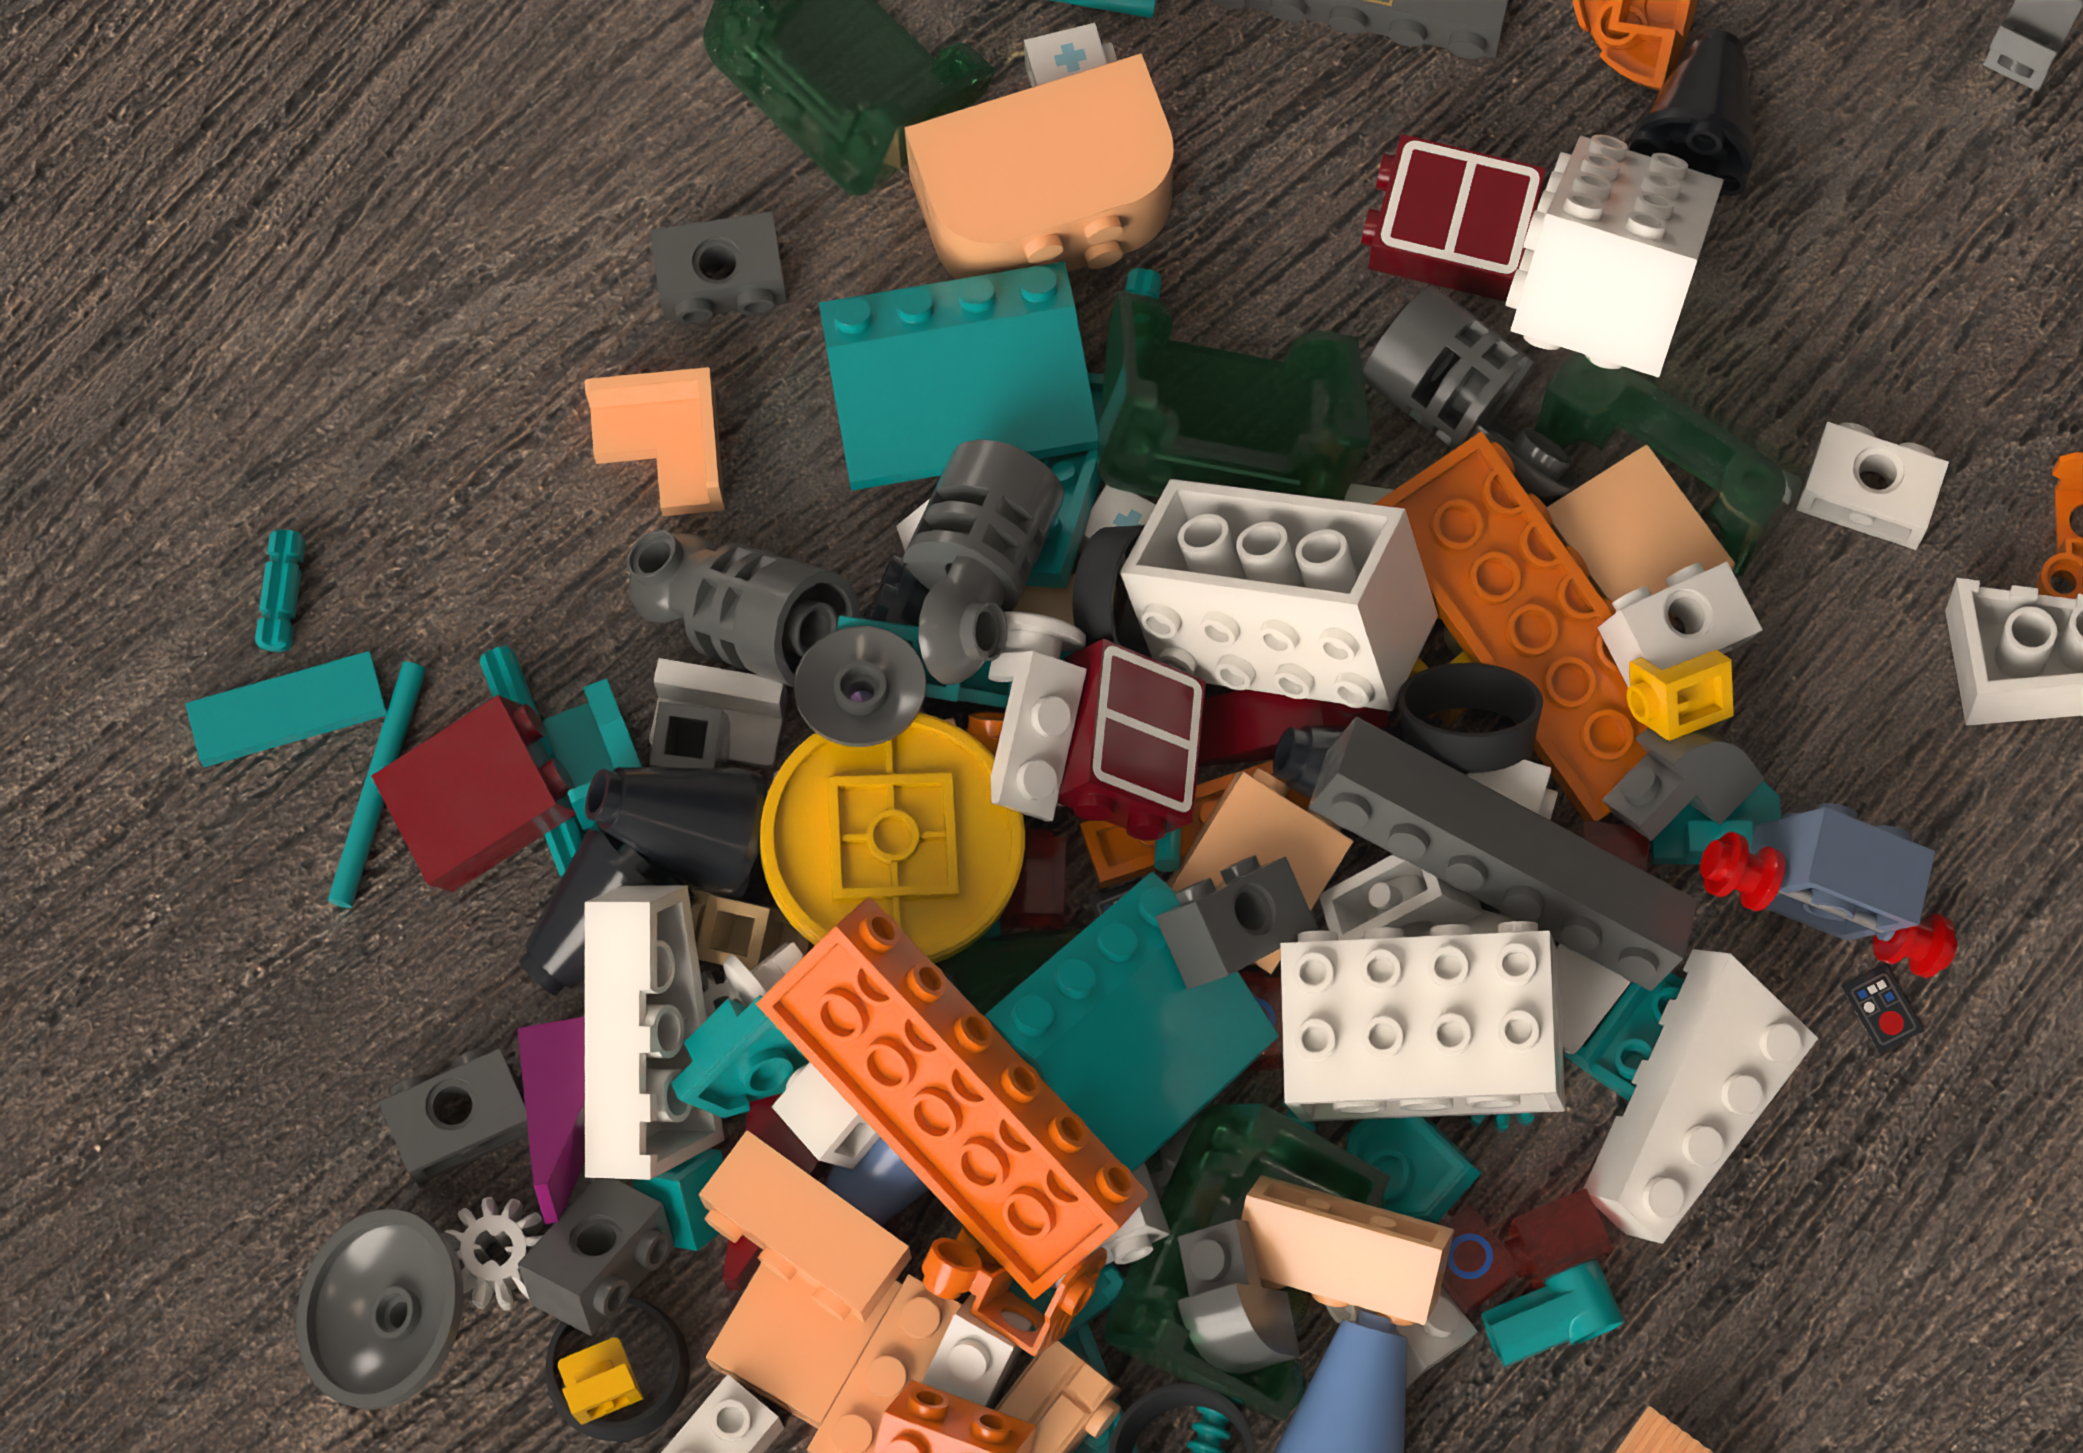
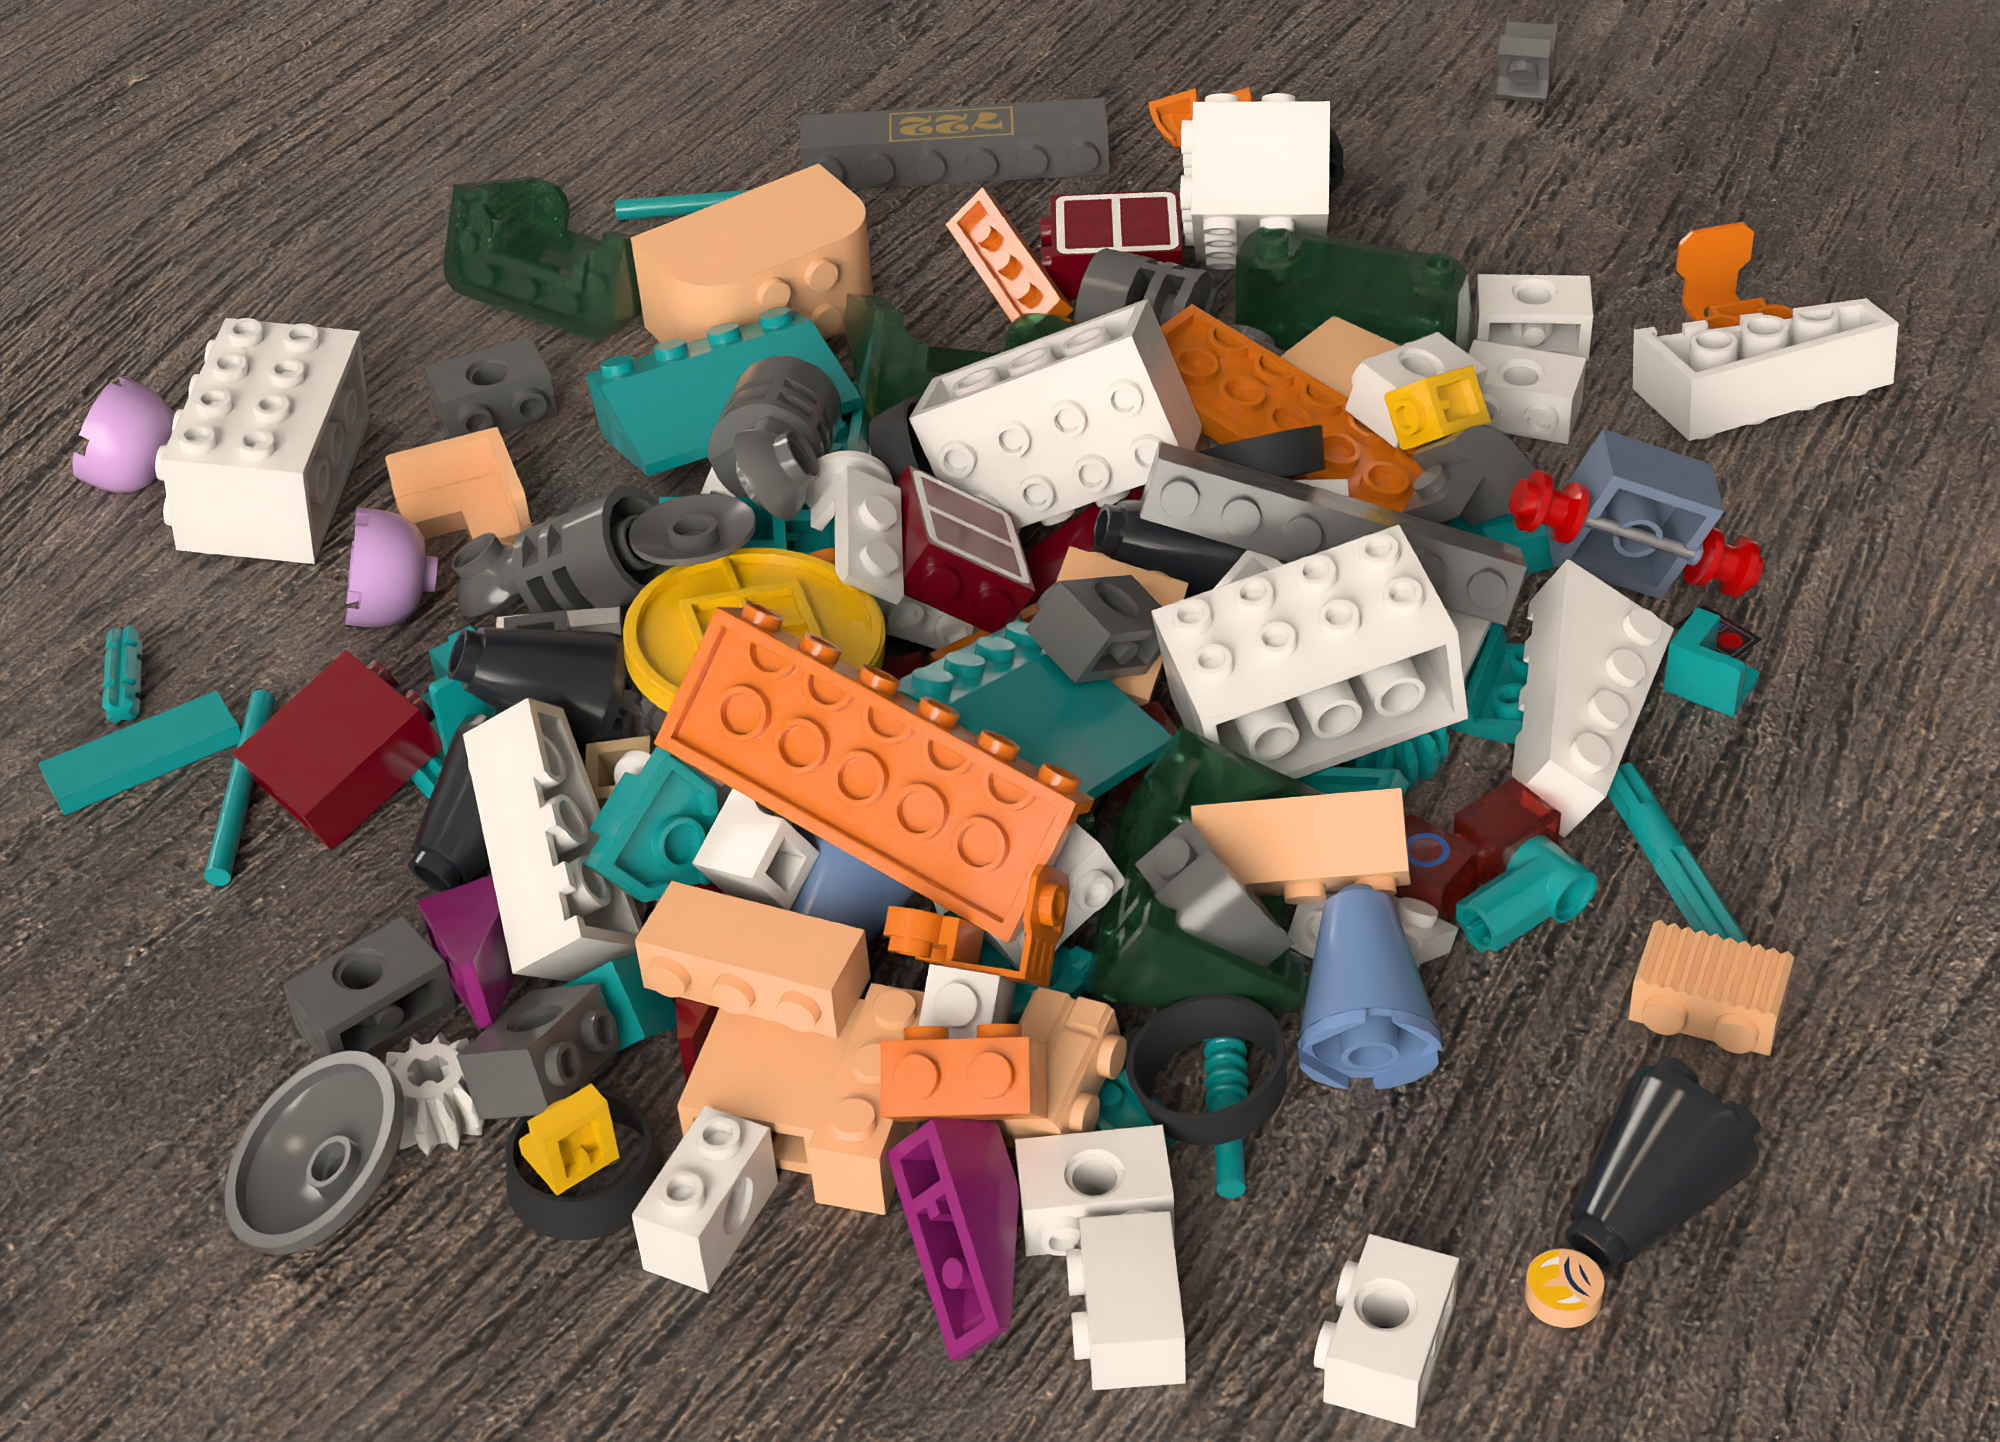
camera: 15 degrees left, 30 degrees down
(326, 247) = (123, 437): none -> lavender cylinder
(465, 308) = (265, 441): none -> white brick
(561, 537) = (387, 569): none -> lavender cylinder
(1327, 217) = (1005, 259): none -> plate
(1711, 1316) = (1670, 855): none -> teal axle
(1848, 1070) = (1702, 673): none -> teal panel
(1849, 605) = (1531, 390): none -> white brick

